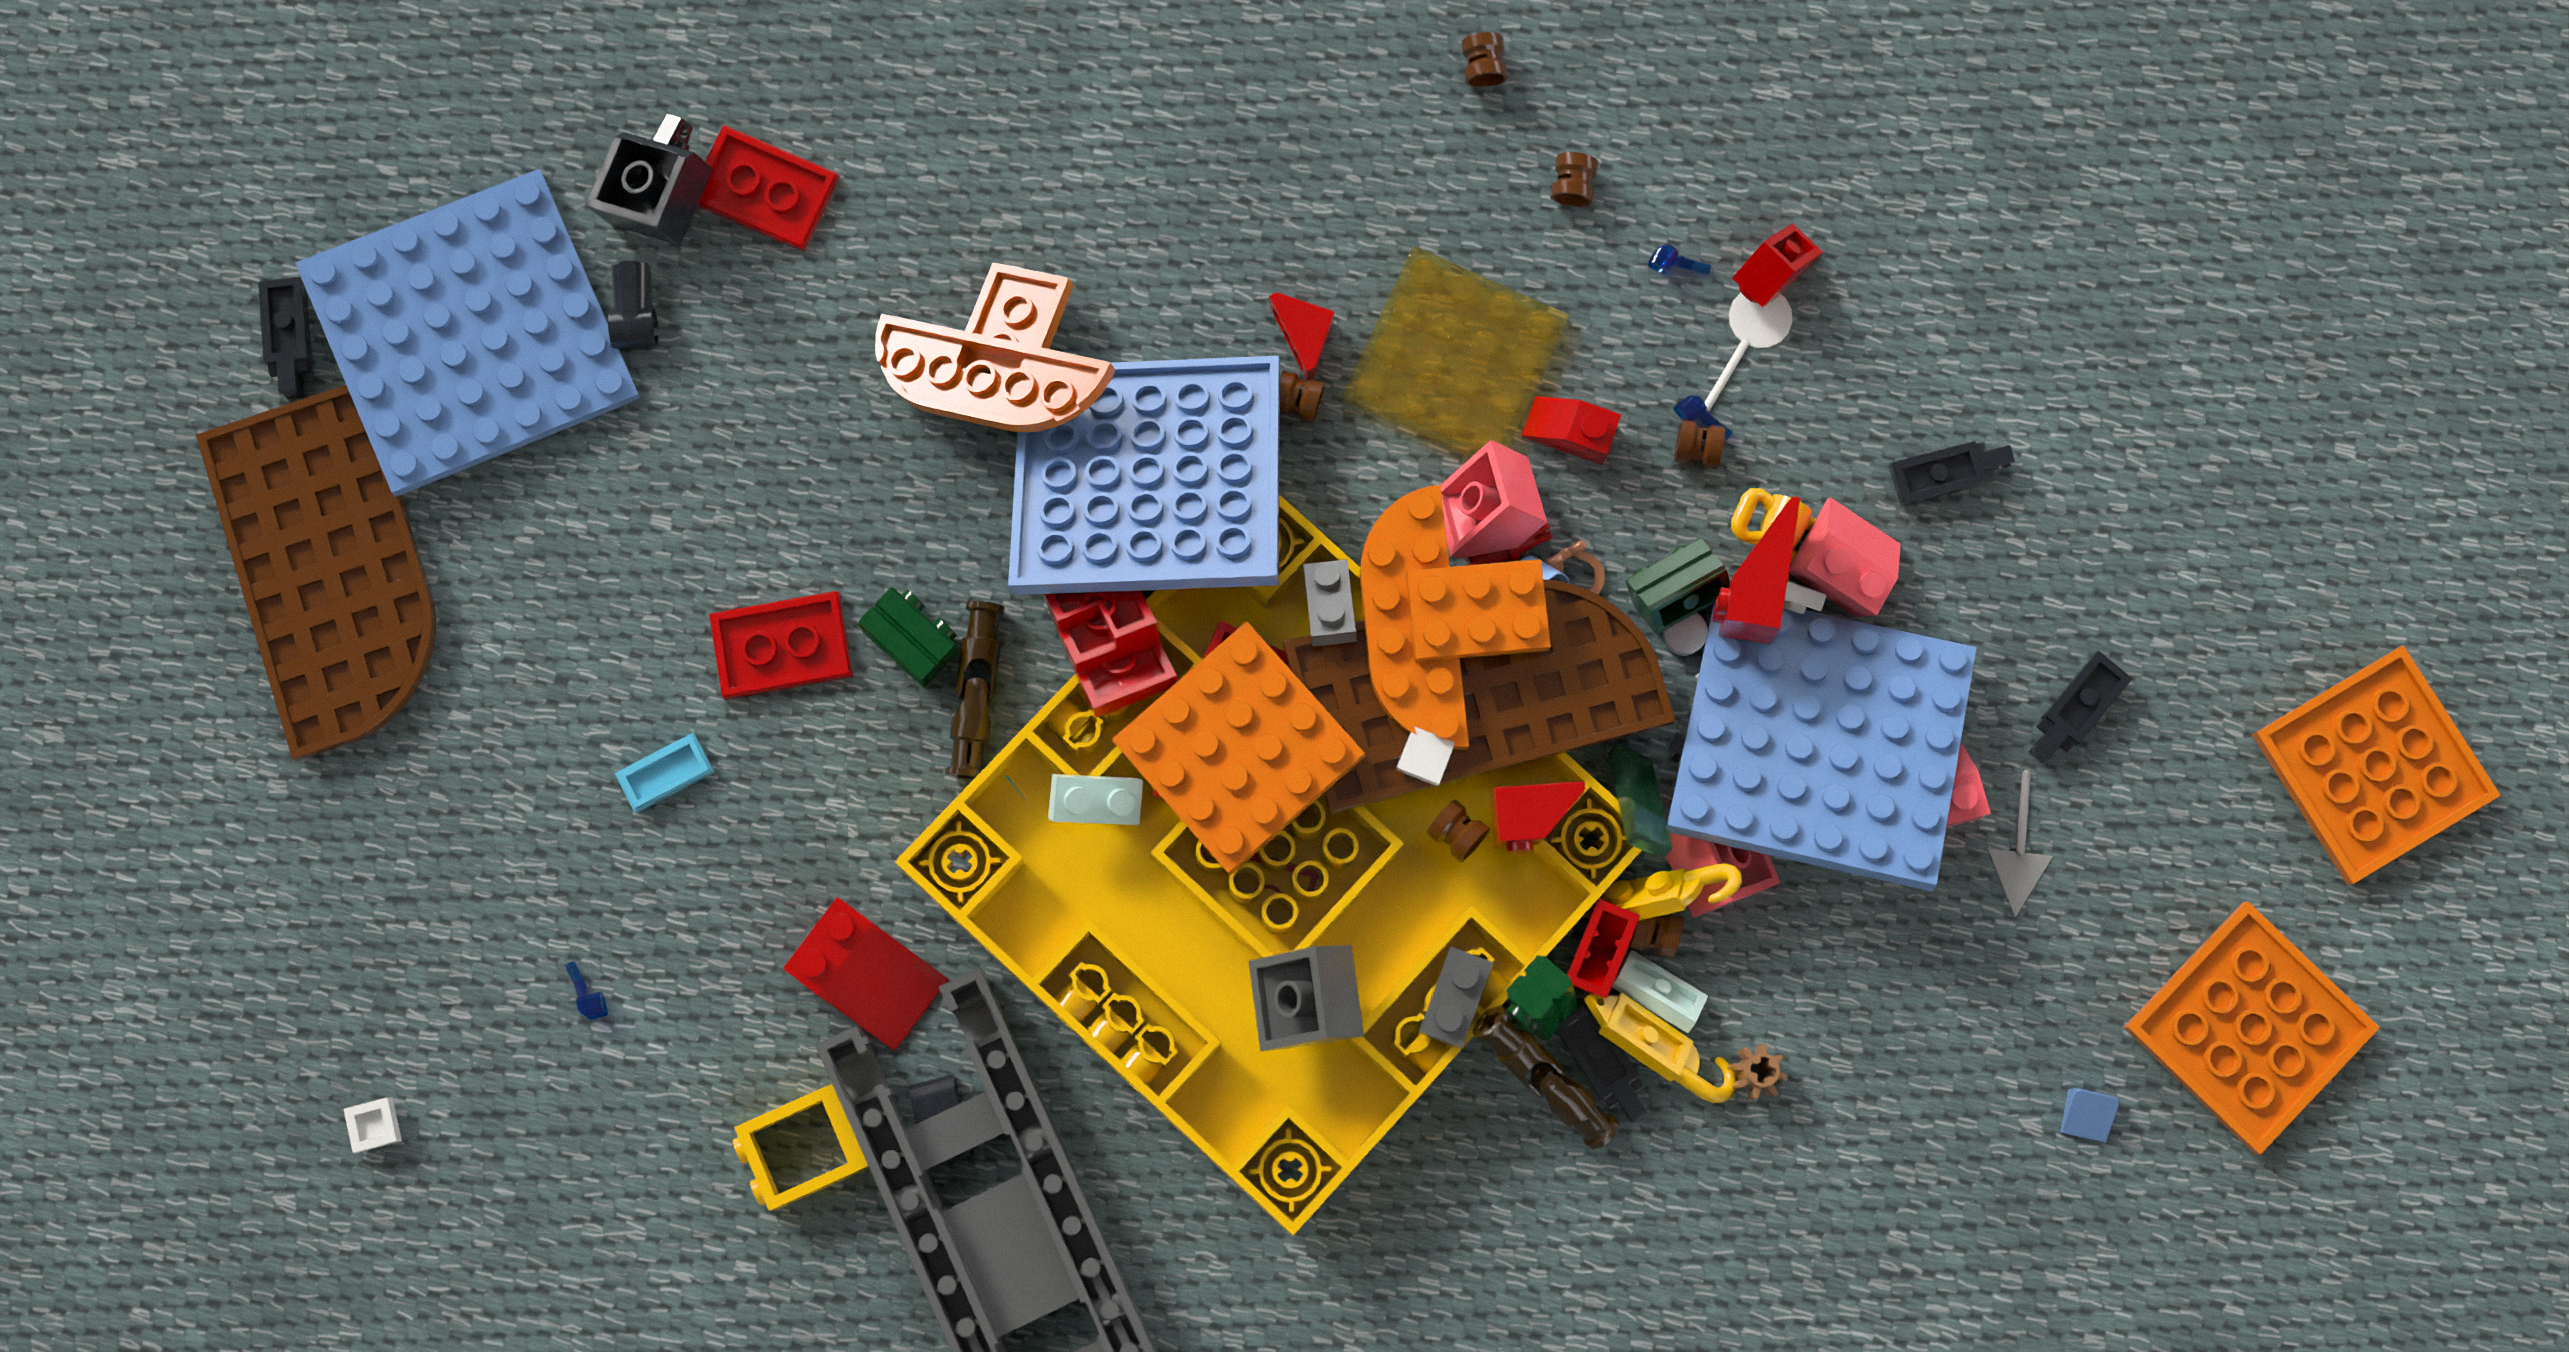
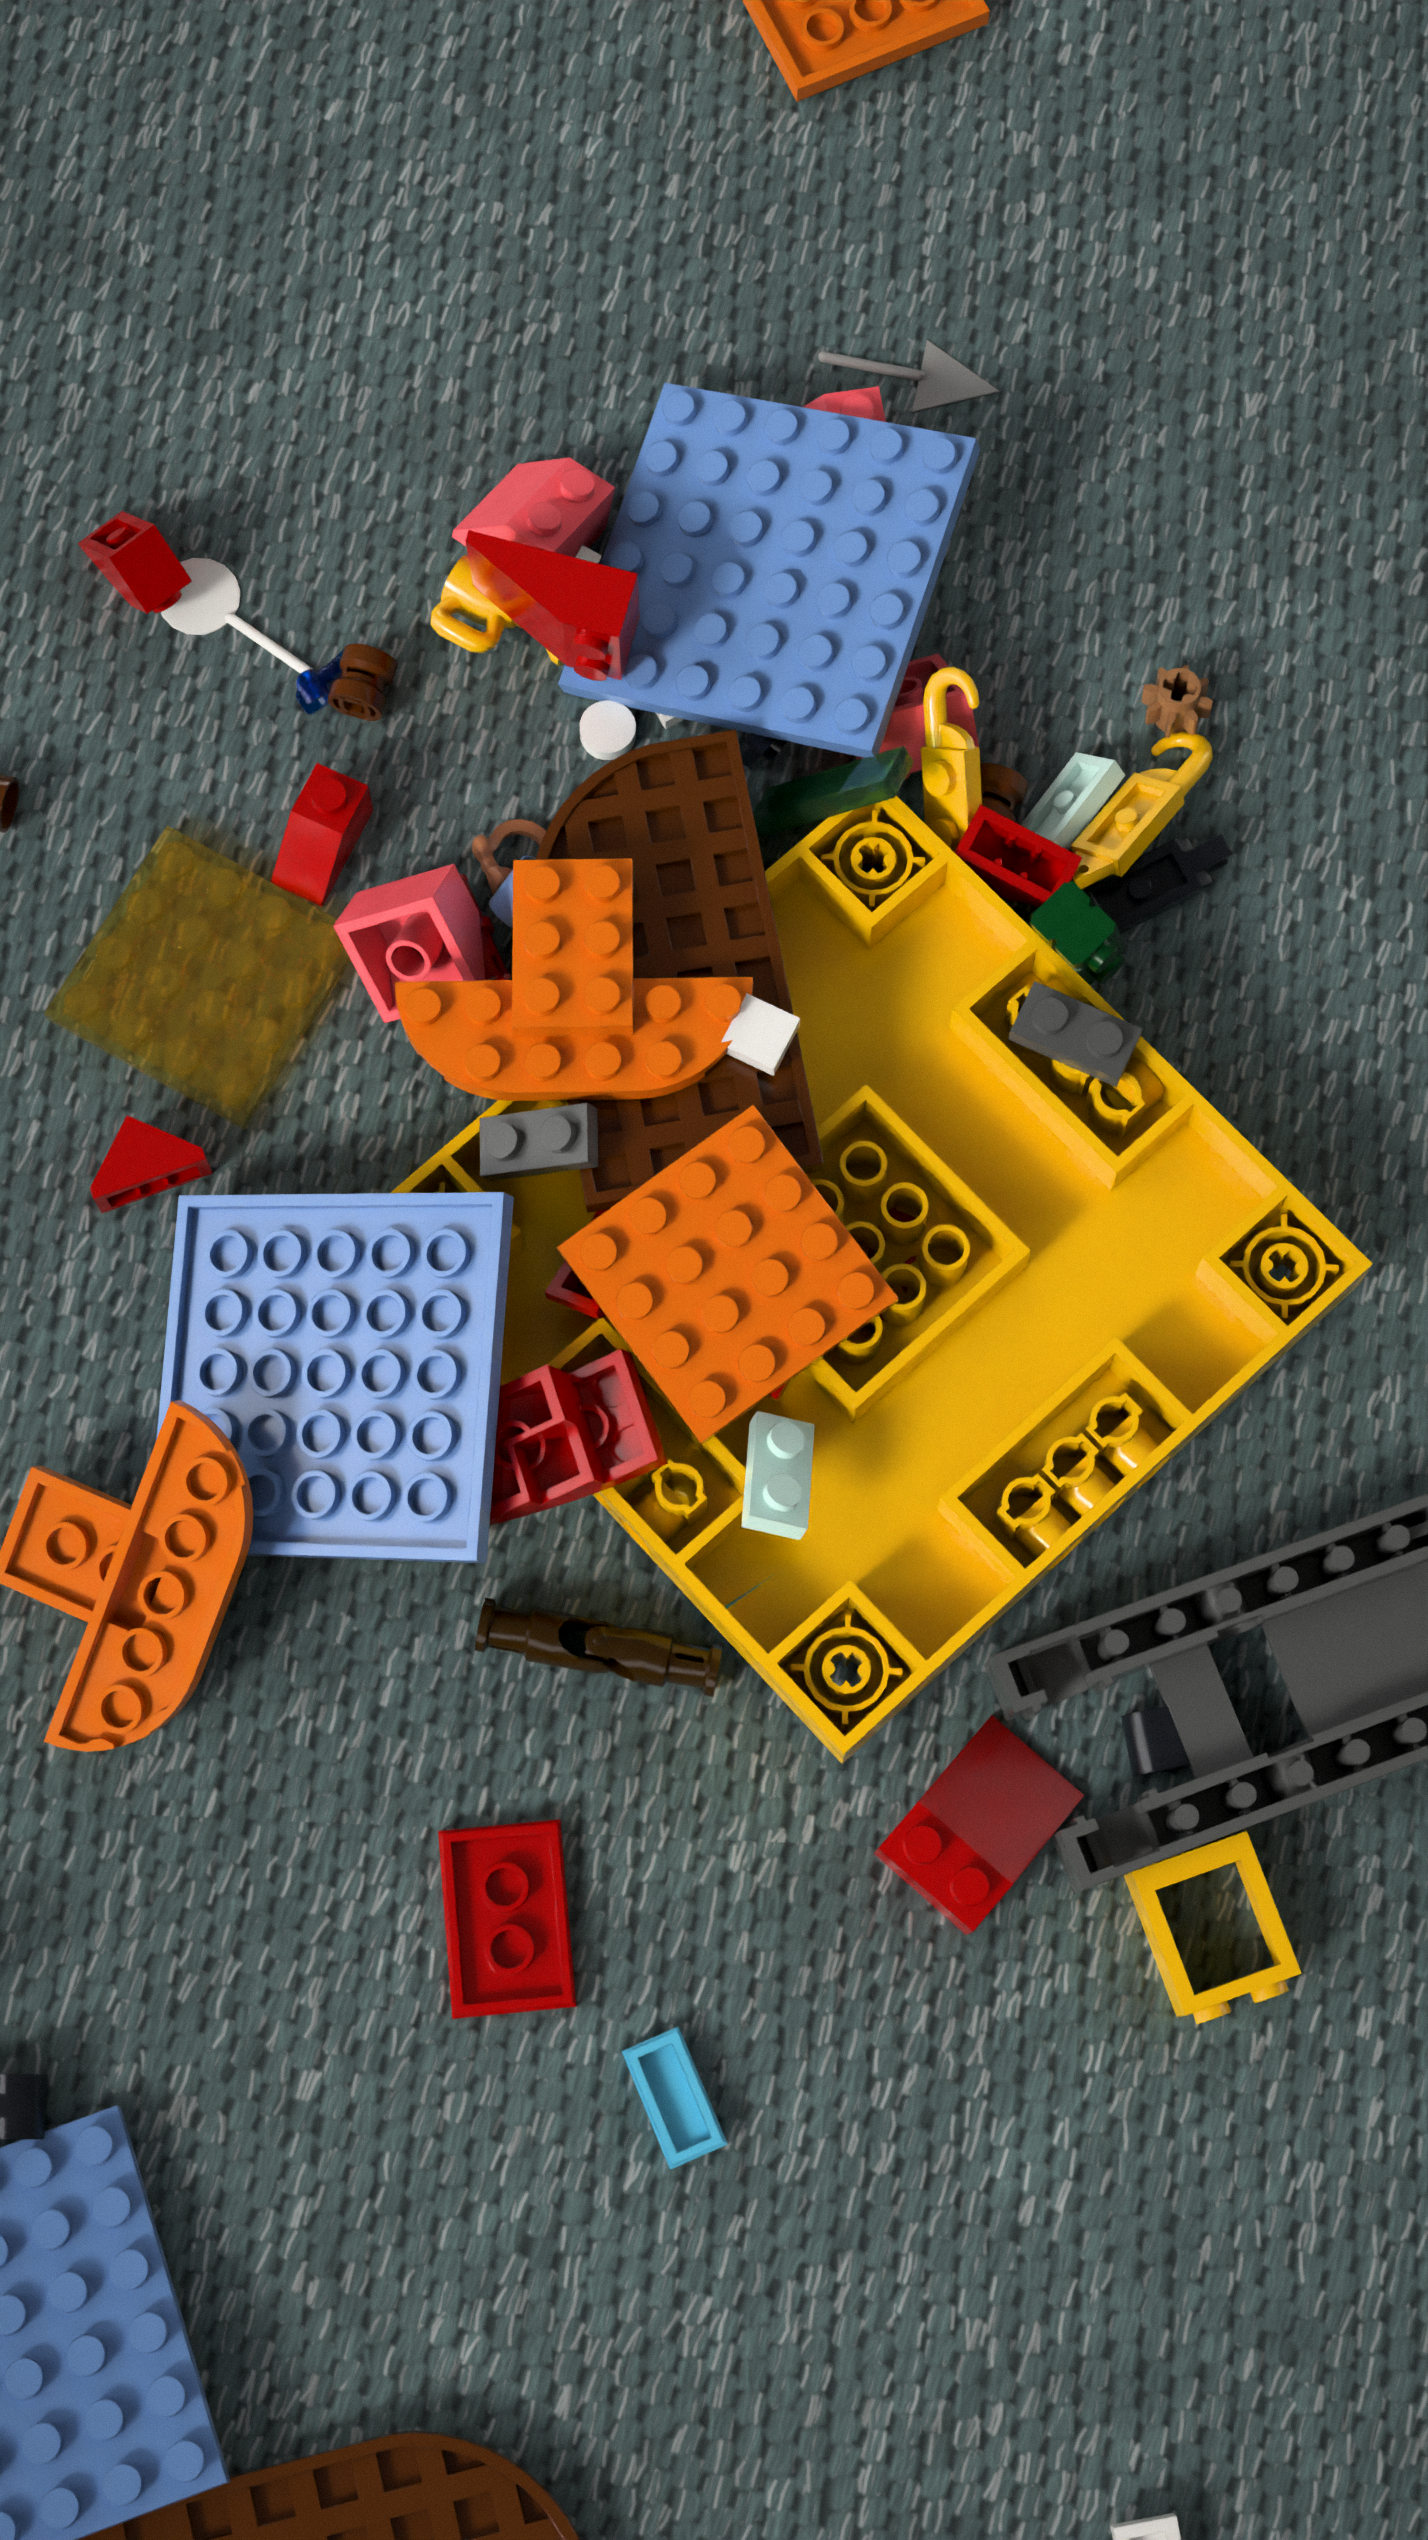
camera: 90 degrees left, 5 degrees down
(589, 1005) = (997, 2223): clear blue hand -> none
(908, 636) = (514, 1731): dark green brick -> none
(1289, 393) = (237, 1171): reddish brown wheel -> none
(1306, 997) = (1069, 1216): dark grey slope -> none
(1458, 830) = (857, 1010): reddish brown wheel -> none
(1529, 812) = (844, 916): red slope -> none
(1565, 1096) = (1176, 943): dark brown piece -> none
(1667, 256) = (104, 699): clear blue hand -> none
(1677, 585) = (548, 724): dark green brick -> none
(1947, 471) = (432, 396): black hinge -> none
(2079, 706) = (747, 283): black hinge -> none
(2089, 1114) = (1246, 336): medium blue slope -> none
(2251, 1028) = (1152, 146): orange plate -> none

